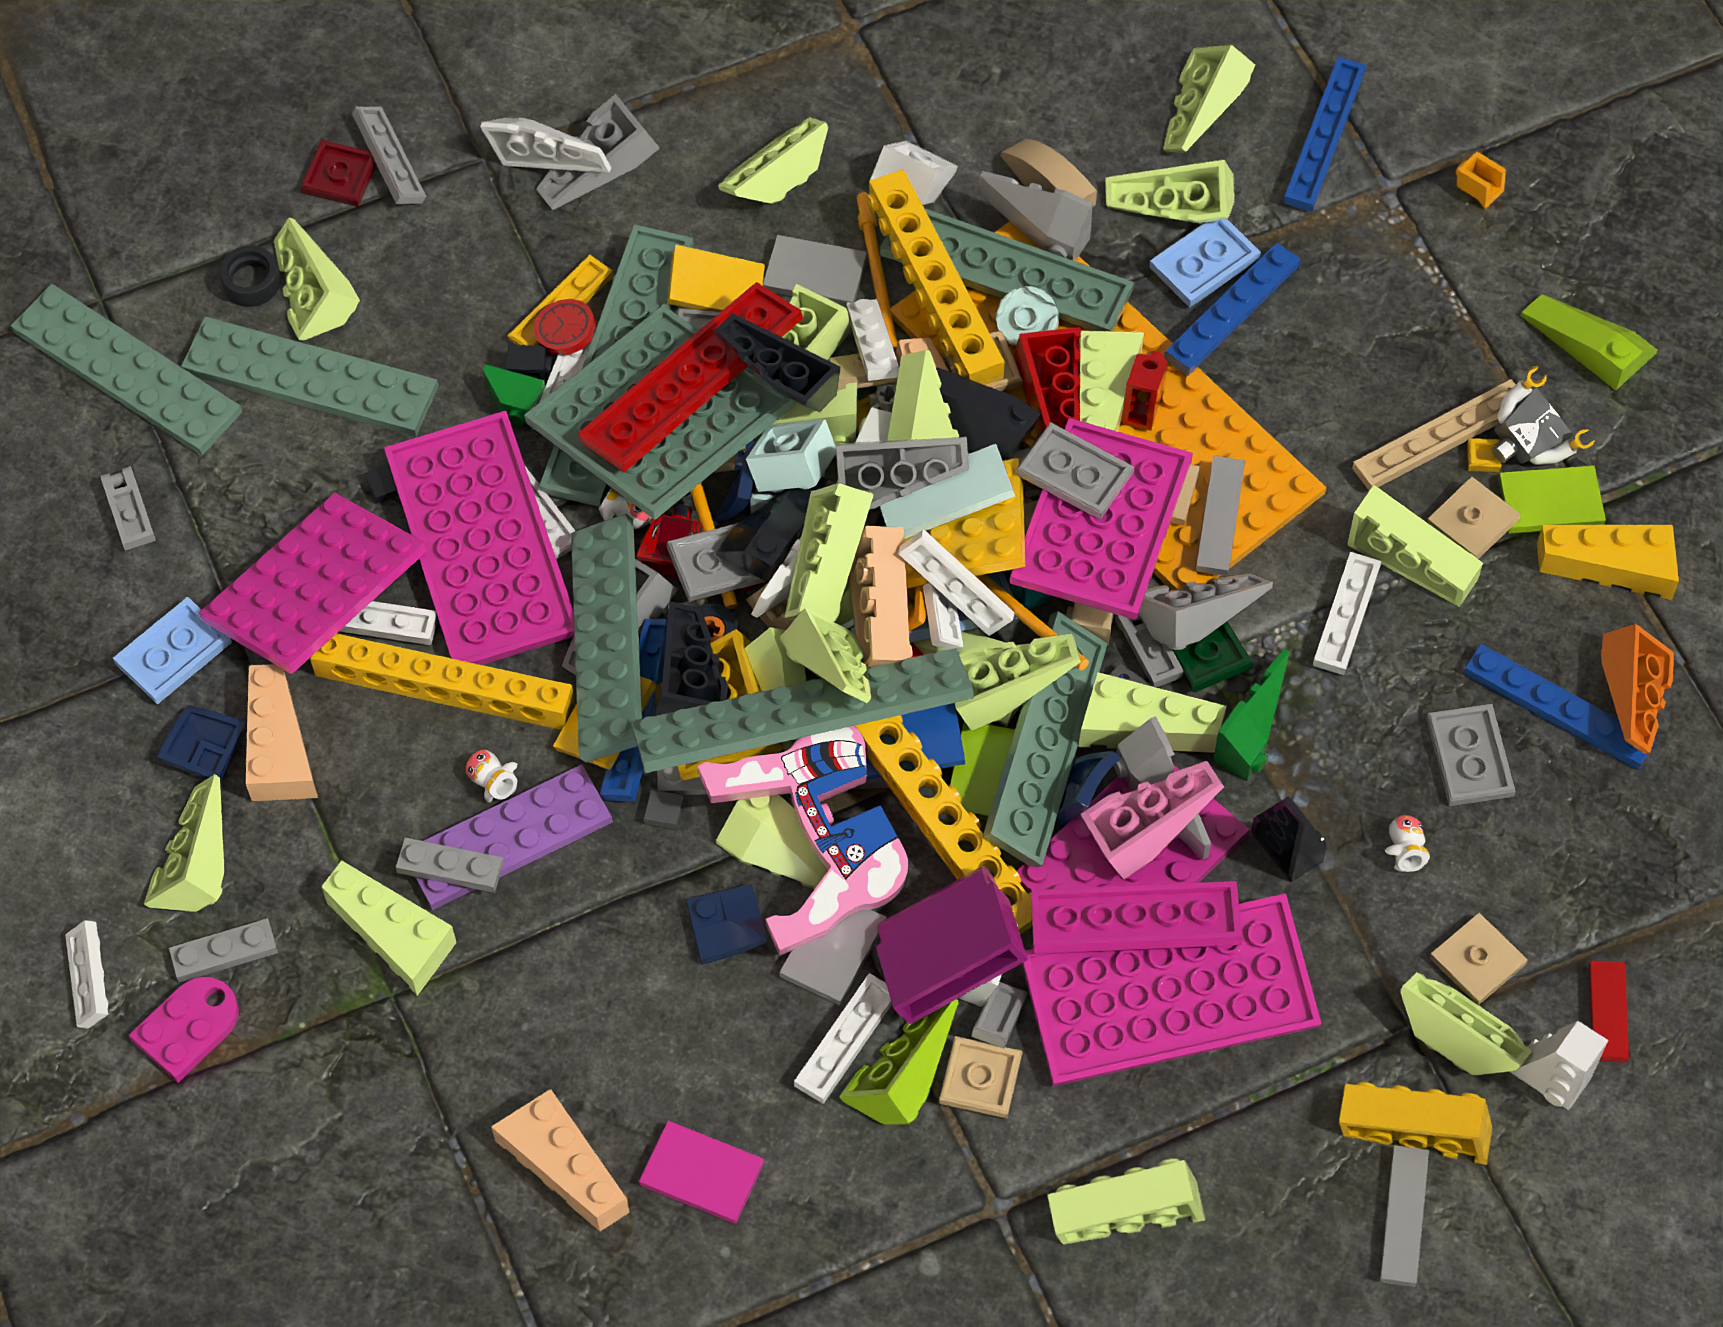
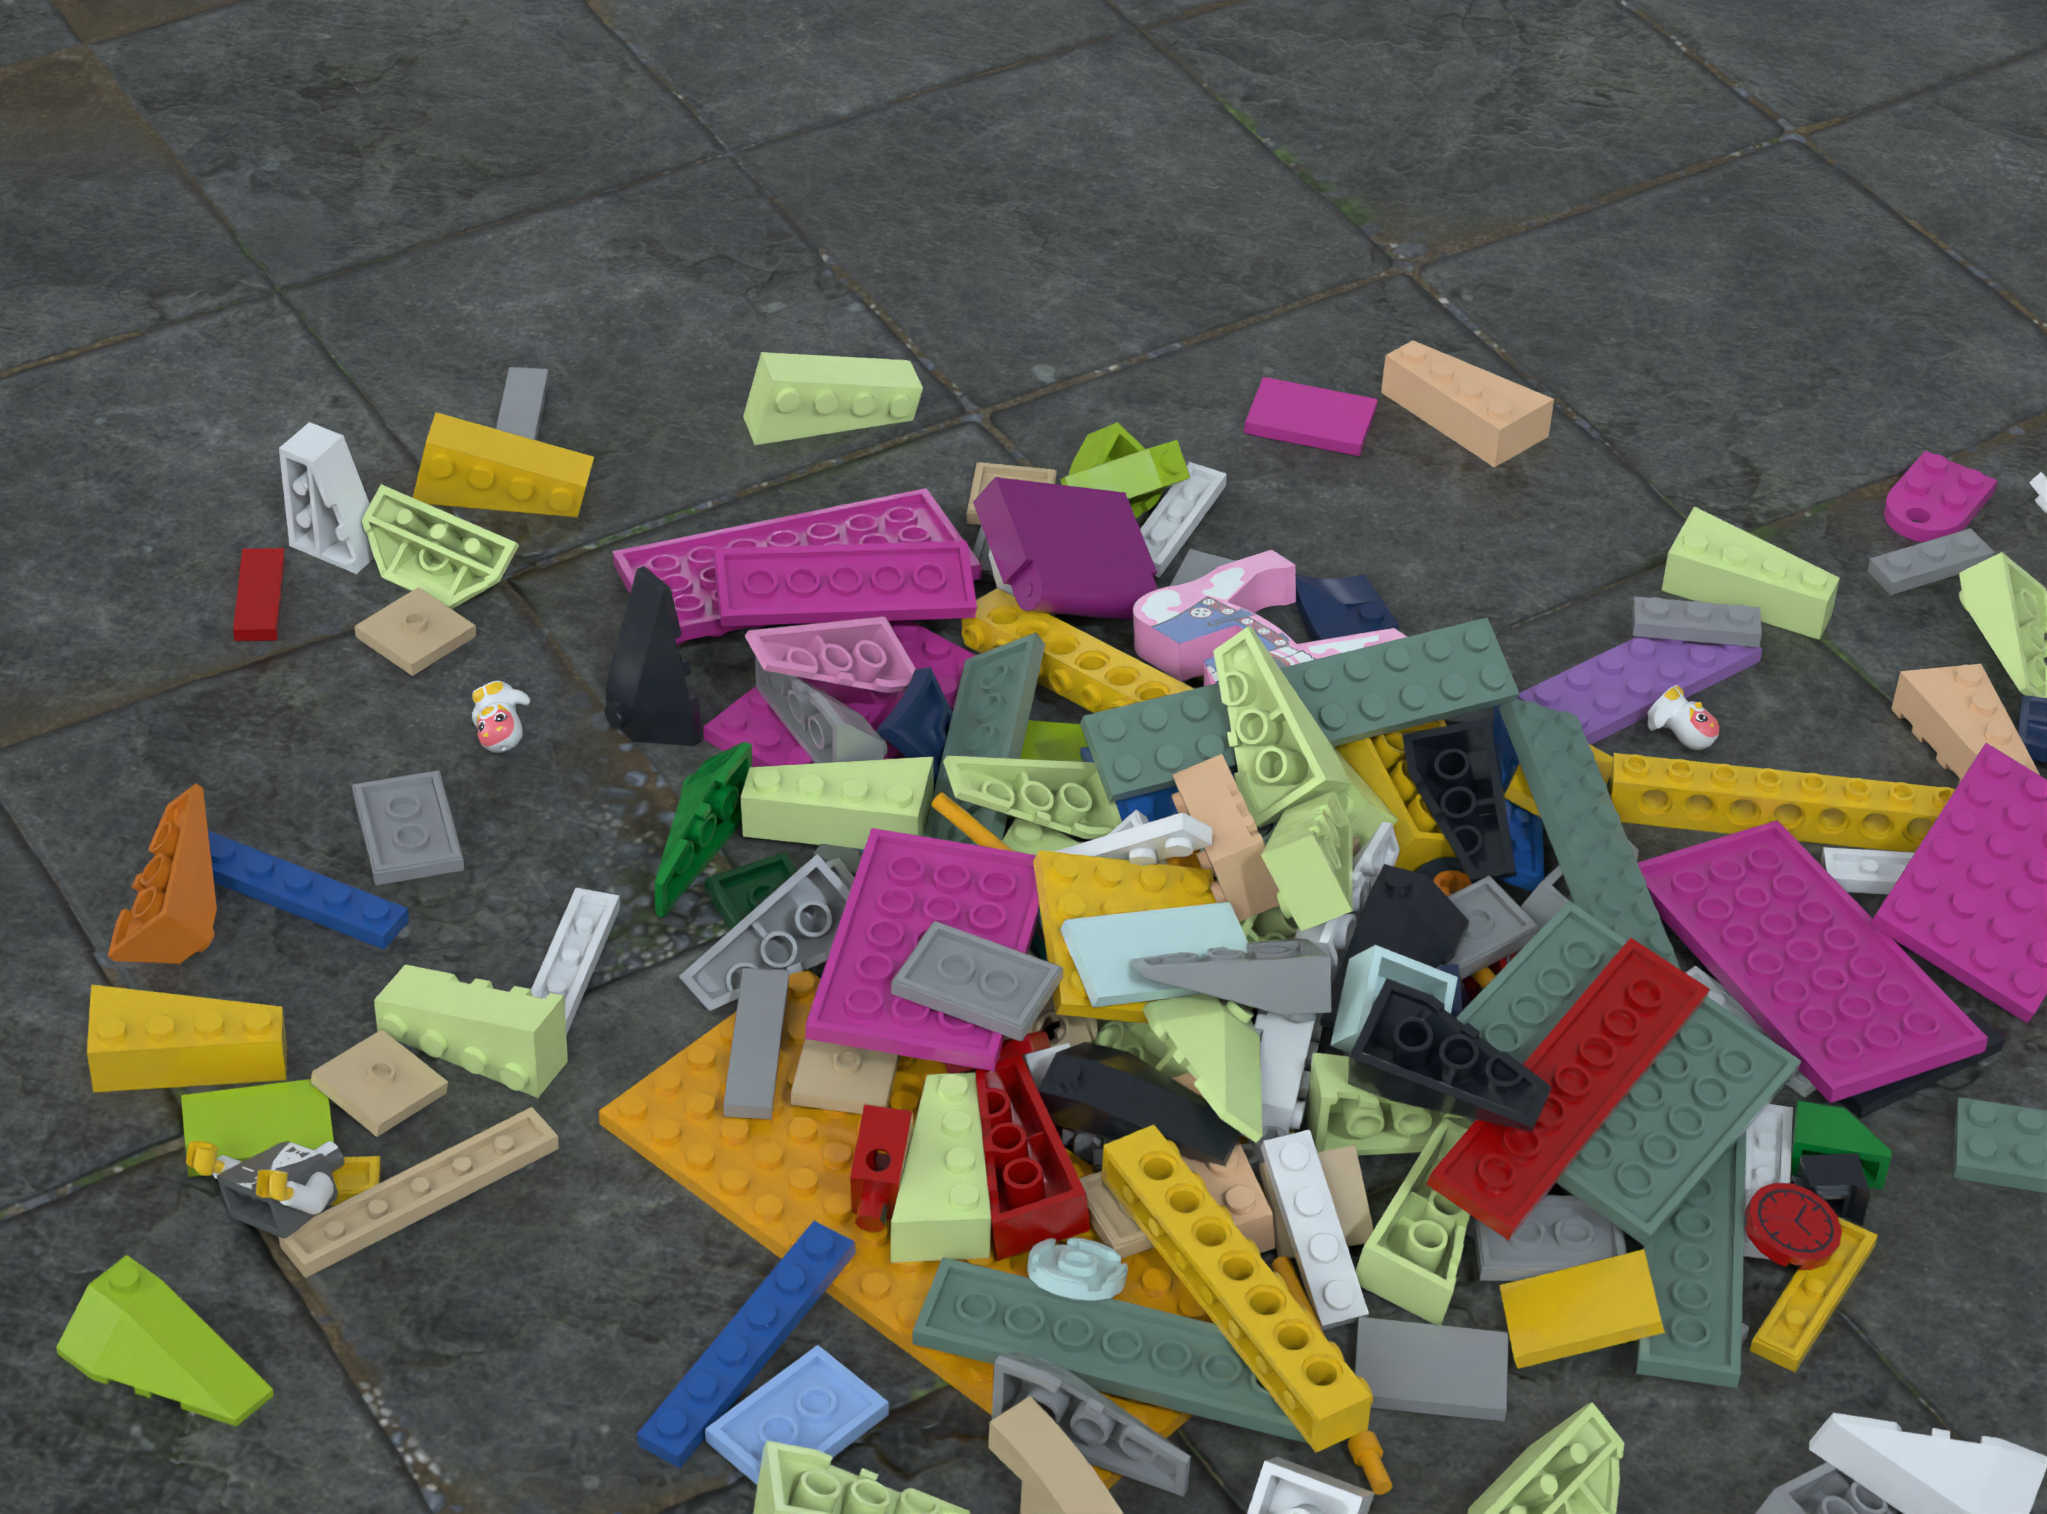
camera: 170 degrees right, 20 degrees down
(880, 1049) = (1136, 473): none -> lime slope

